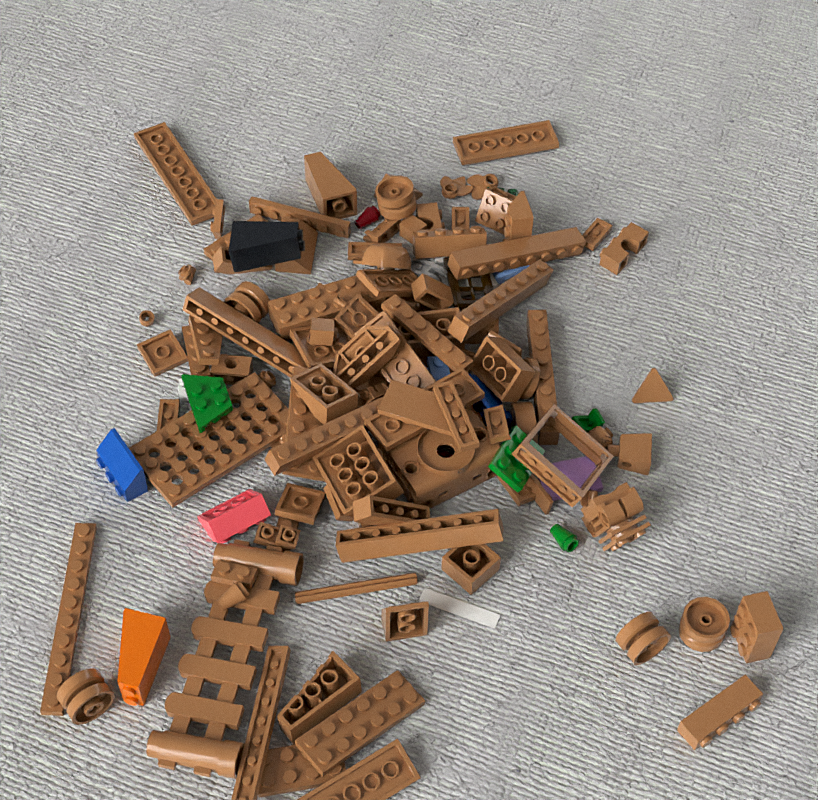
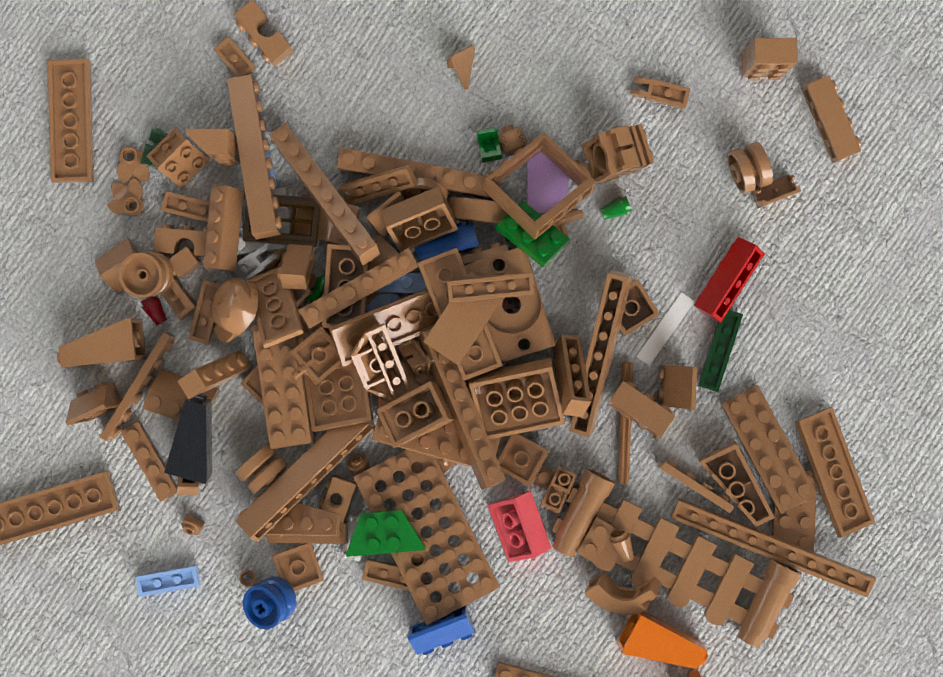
camera: 75 degrees left, 35 degrees up
(128, 331) = (269, 602): none -> blue wheel
(135, 265) = (168, 580): none -> light blue plate
(178, 607) = (620, 599): none -> medium nougat arch
(218, 212) = (132, 481): medium nougat plate -> none
(274, 187) = (93, 404): none -> medium nougat slope
(309, 655) = (704, 489): none -> medium nougat plate
(322, 331) = (328, 398): medium nougat brick -> none
(323, 249) = (214, 374): none -> medium nougat brick
(371, 590) = (642, 409): none -> medium nougat wedge
(451, 657) = (720, 351): none -> dark green plate
(497, 424) = (495, 244): medium nougat plate -> none
(517, 335) = (378, 185): none -> medium nougat plate
(525, 646) = (729, 279): none -> red brick
(627, 676) = (776, 191): none -> medium nougat hinge
(633, 452) = (534, 109): medium nougat torso -> none
(688, 555) = (662, 92): none -> medium nougat hinge
(704, 624) = (742, 94): medium nougat wheel -> none

